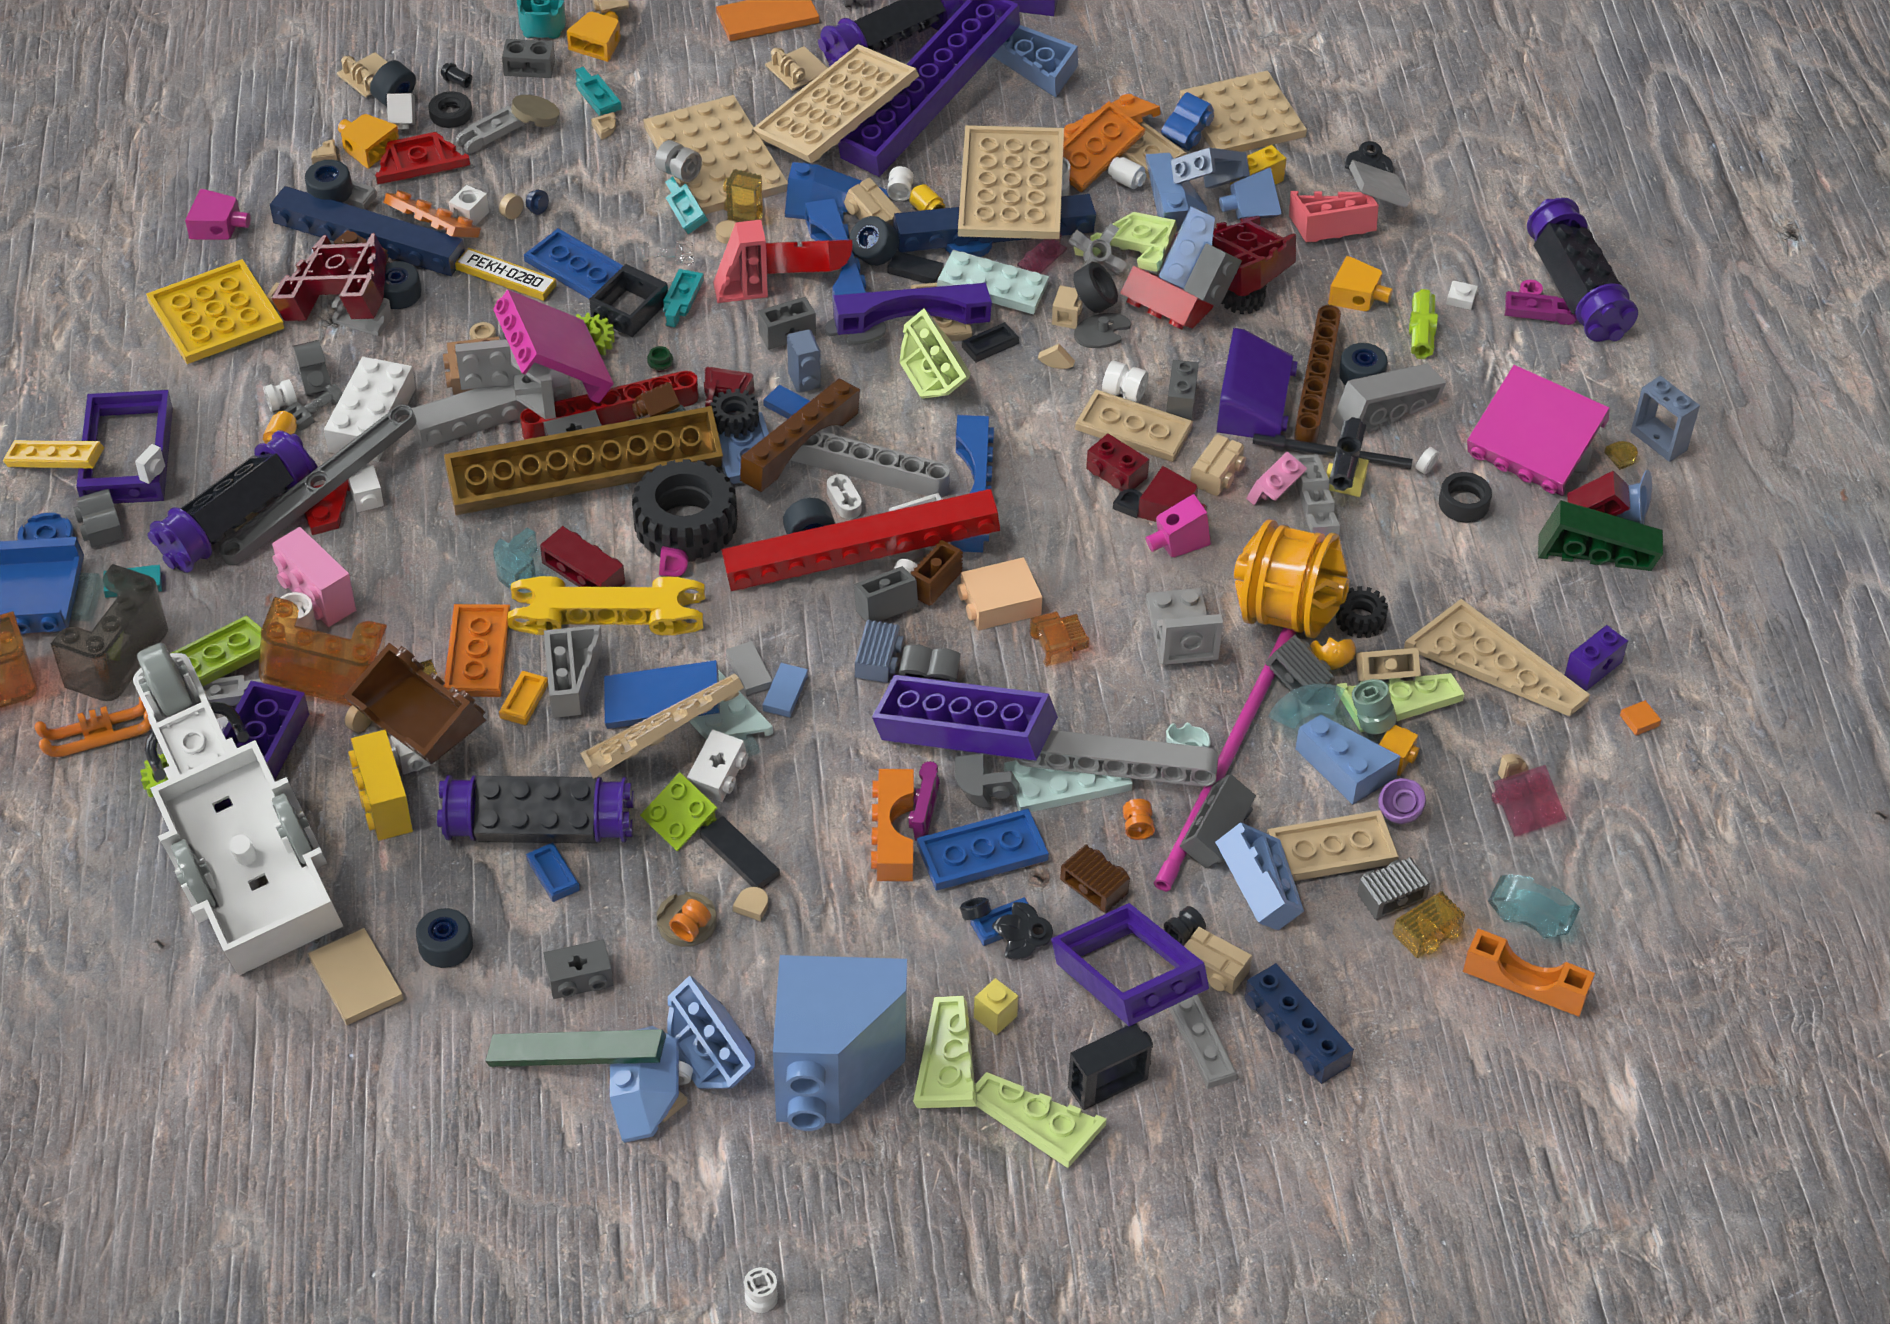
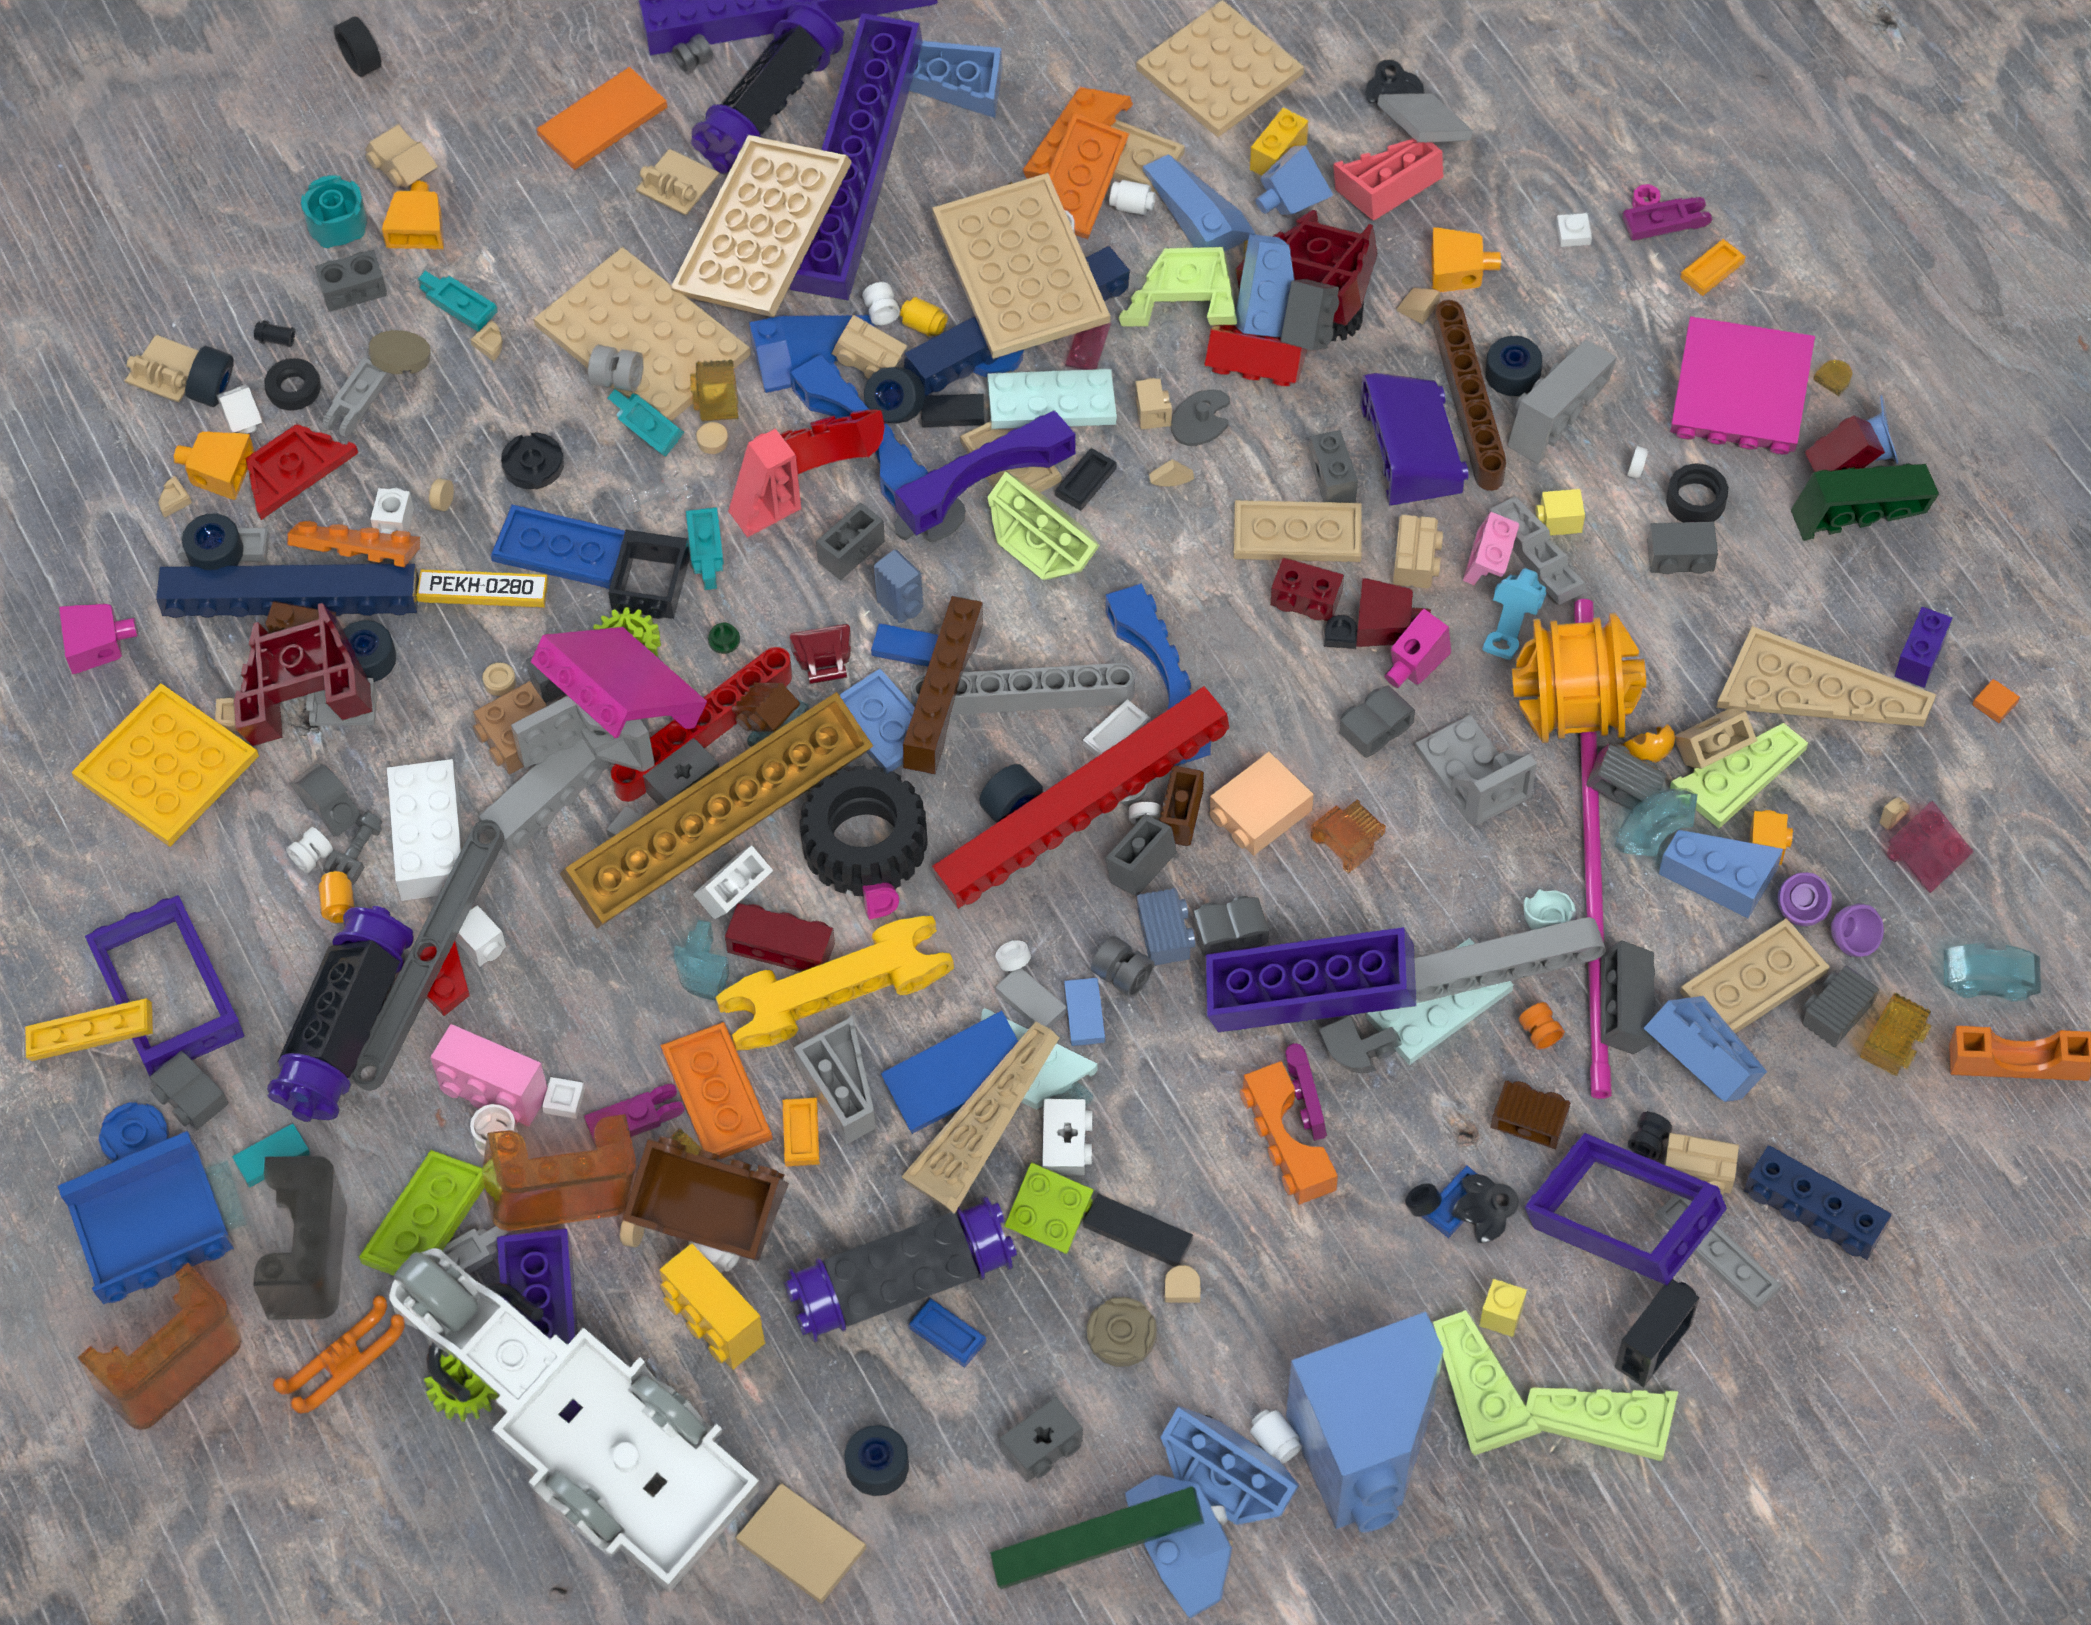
camera: 20 degrees left, 10 degrees up
(150, 463) = (222, 1004): white plate -> none
(363, 611) = (563, 1097): none -> white tile
(420, 643) = (641, 1111): none -> magenta hinge
(537, 201) = (469, 477): dark blue plate -> none
(568, 511) = (733, 882): none -> white brick
(590, 207) = (532, 461): none -> black tile
(688, 922) = (1136, 1332): orange wheel -> none
(735, 402) = (857, 668): black tyre -> none
(751, 632) = (1013, 955): none -> white tile
(760, 1032) = (1275, 1435): none -> white brick
(829, 666) = (1118, 963): none -> flat silver wheel
(848, 495) = (1021, 745): white beam -> none
(982, 849) = (1394, 1126): blue plate -> none
(1081, 242) = (1142, 318): light grey pin -> none
(1095, 287) = (1176, 369): black tyre -> none
(1123, 568) = (1376, 721): none -> dark grey brick
(1125, 381) = (1265, 480): white wheel -> none
(1188, 121) = (1170, 105): blue brick -> none
(1213, 164) = (1233, 166): sand blue panel -> none
(1280, 443) = (1467, 495): black bar -> none
(1285, 512) = (1518, 595): none -> medium azure piece
(1309, 307) = (1419, 304): none -> tan slope
(1347, 454) = (1563, 505): black piece -> none
(1362, 623) = (1671, 672): black tyre -> none
(1374, 706) = (1732, 800): sand green wheel -> none
(1423, 324) = (1551, 285): lime piece -> none
(1433, 528) = (1682, 547): none -> dark grey brick
(1435, 837) = (1857, 930): none -> medium lavender piece
(1561, 352) = (1713, 267): none -> light orange tile
(1581, 270) = (1695, 157): brick -> none
(1646, 426) = (1849, 331): sand blue window -> none

